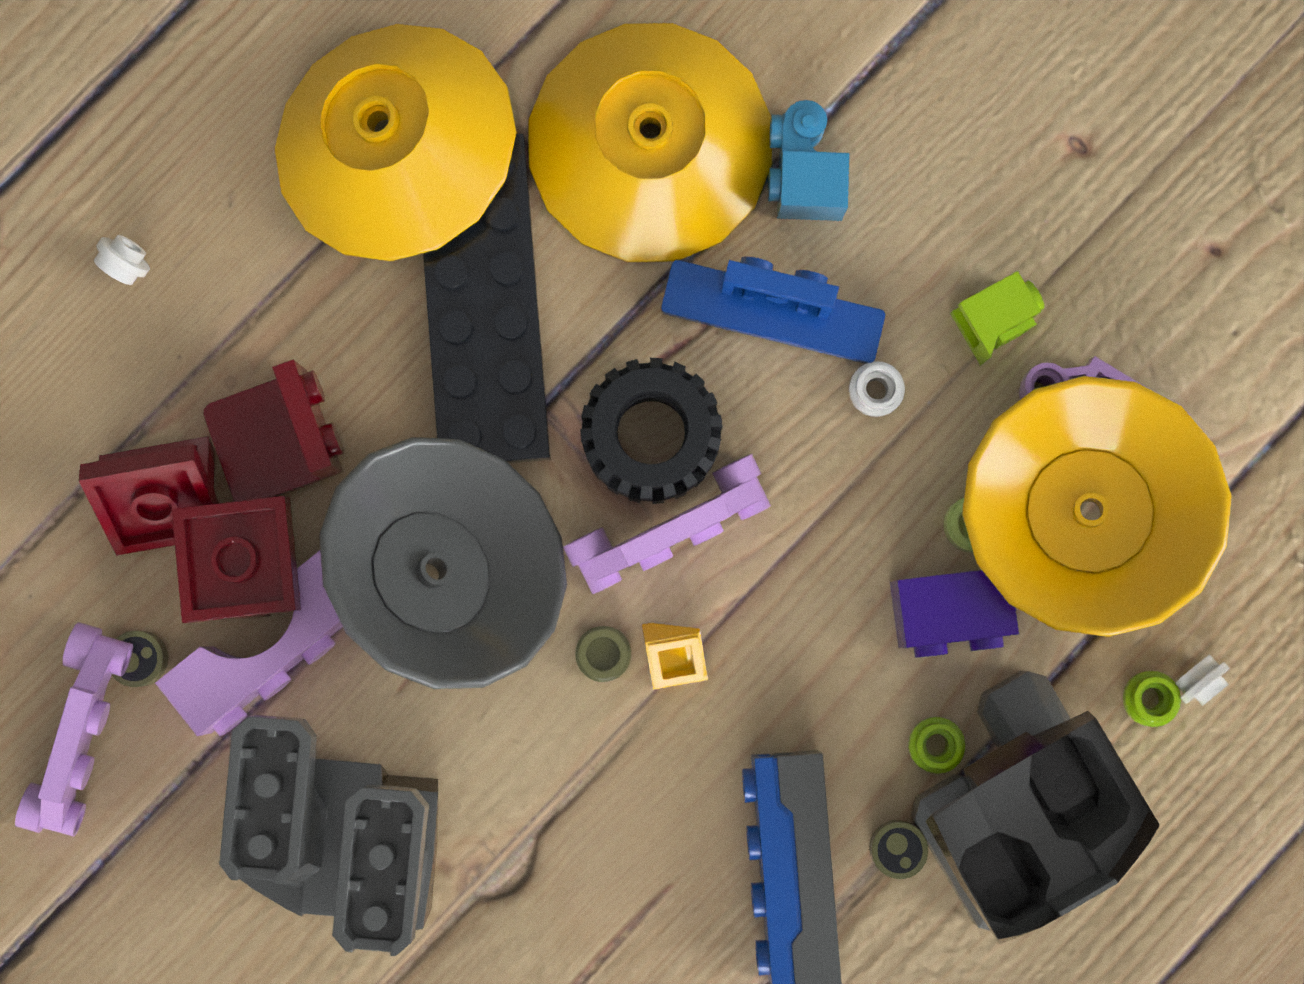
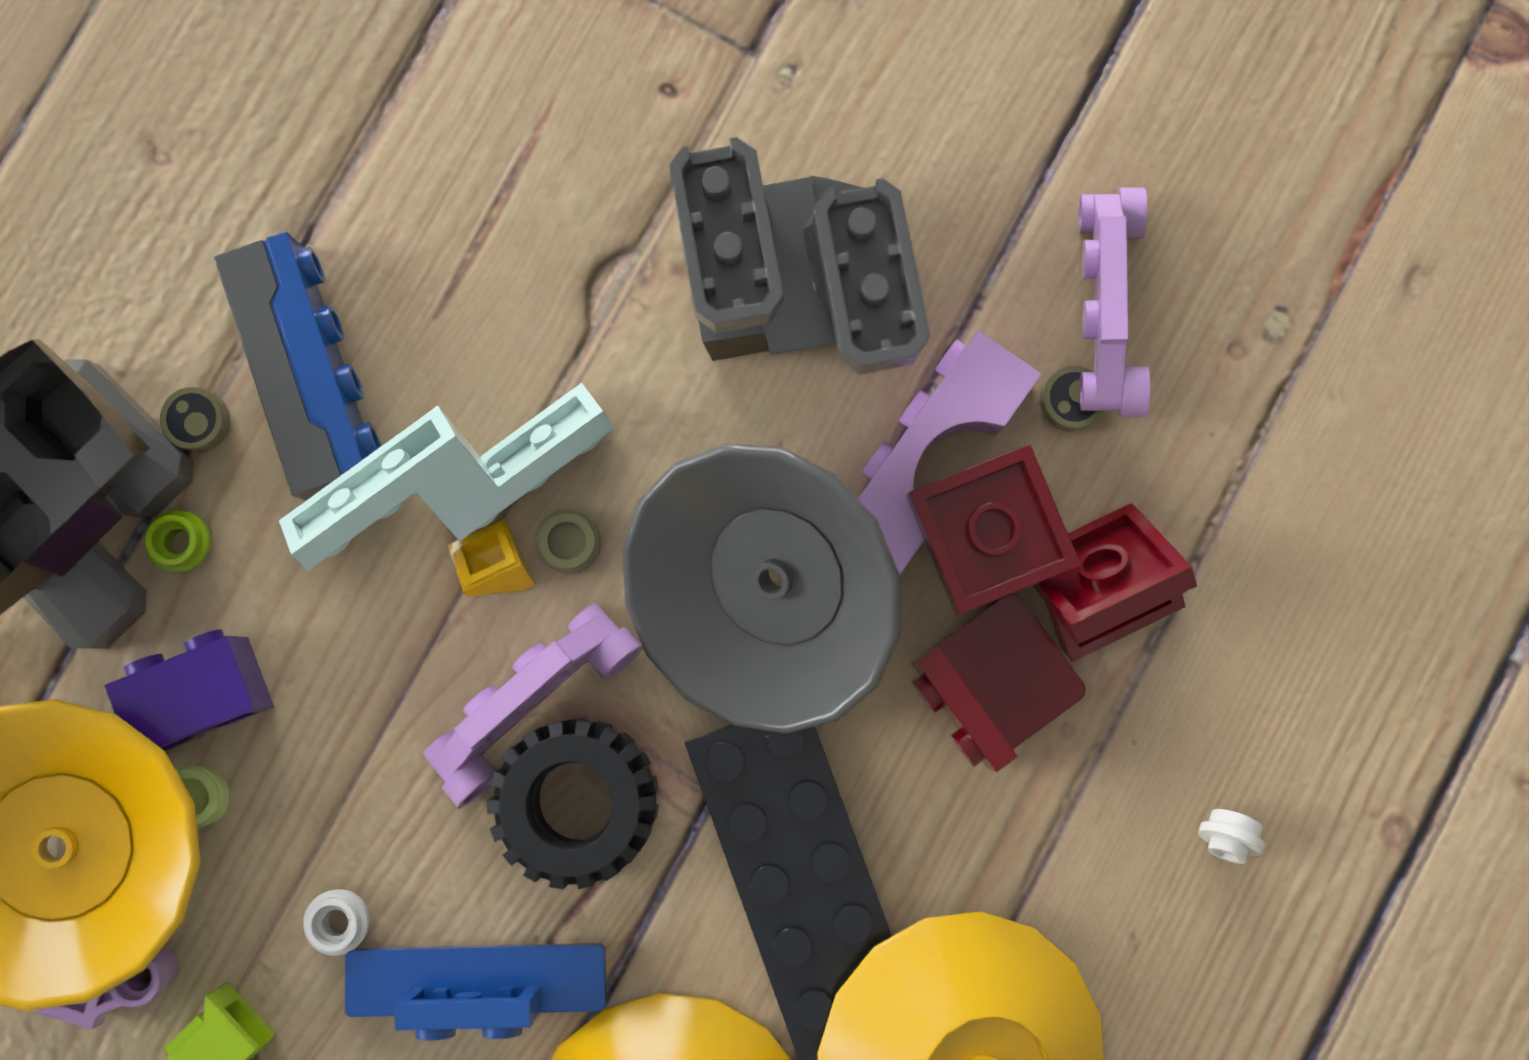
camera: 170 degrees right, 0 degrees up
(689, 744) = (446, 474): none -> light aqua bracket

